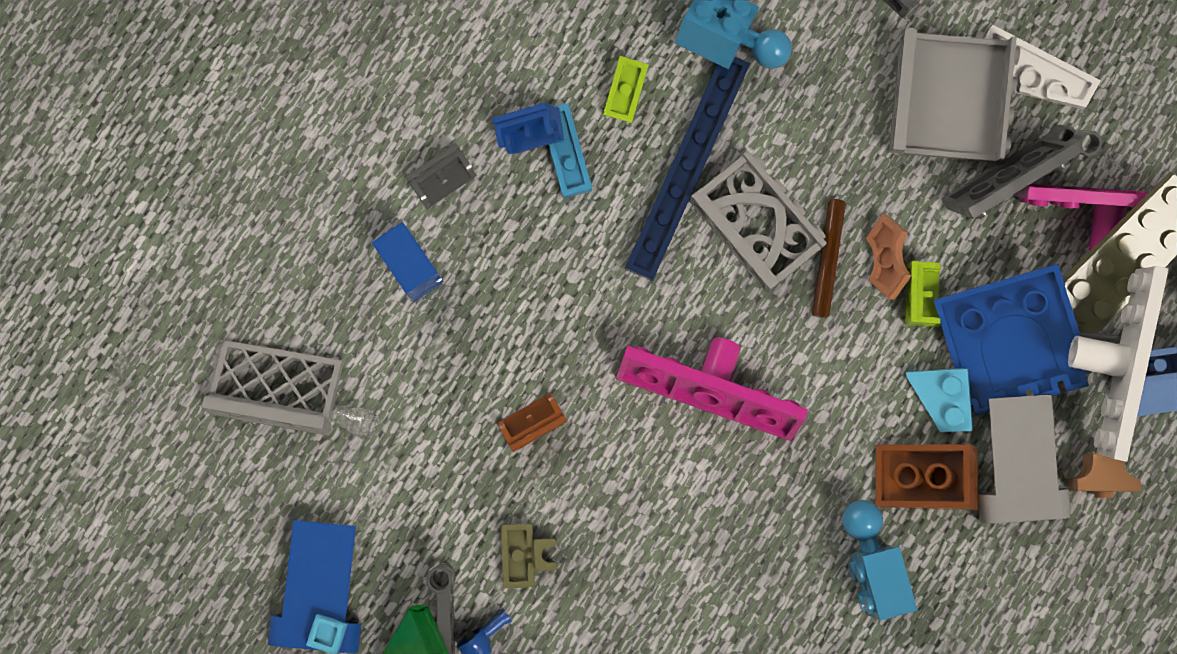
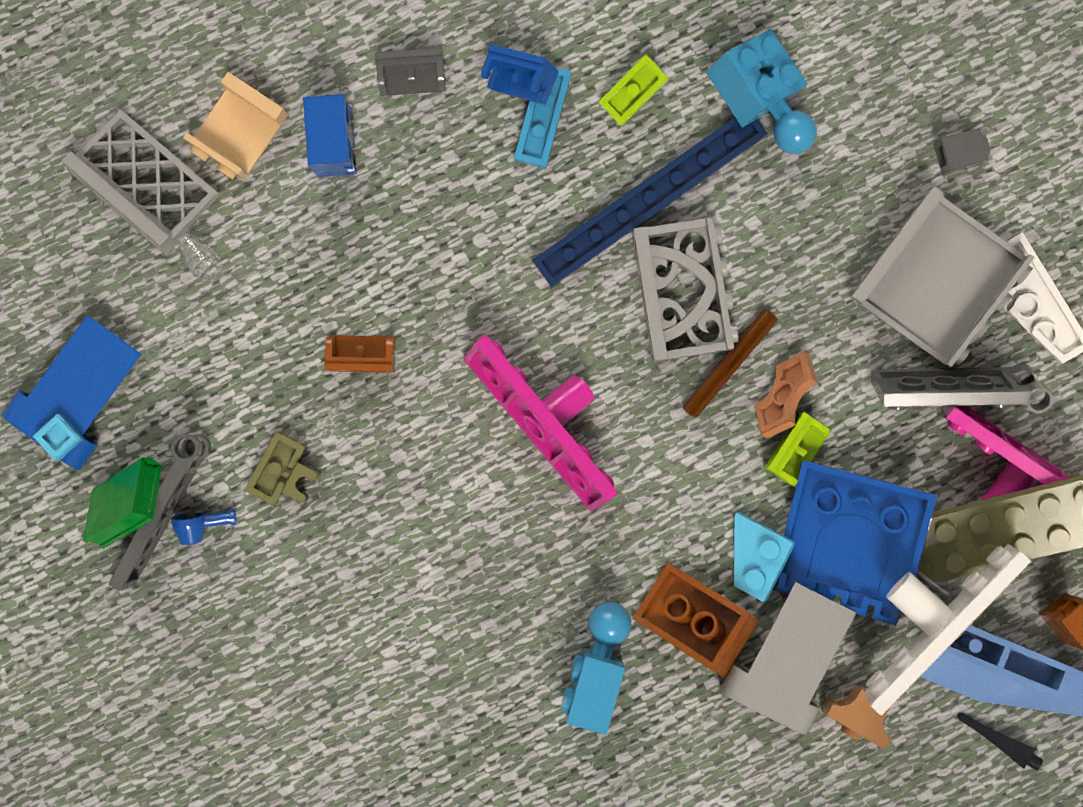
camera: 30 degrees right, 5 degrees up
(327, 300) = (237, 128): none -> tan panel

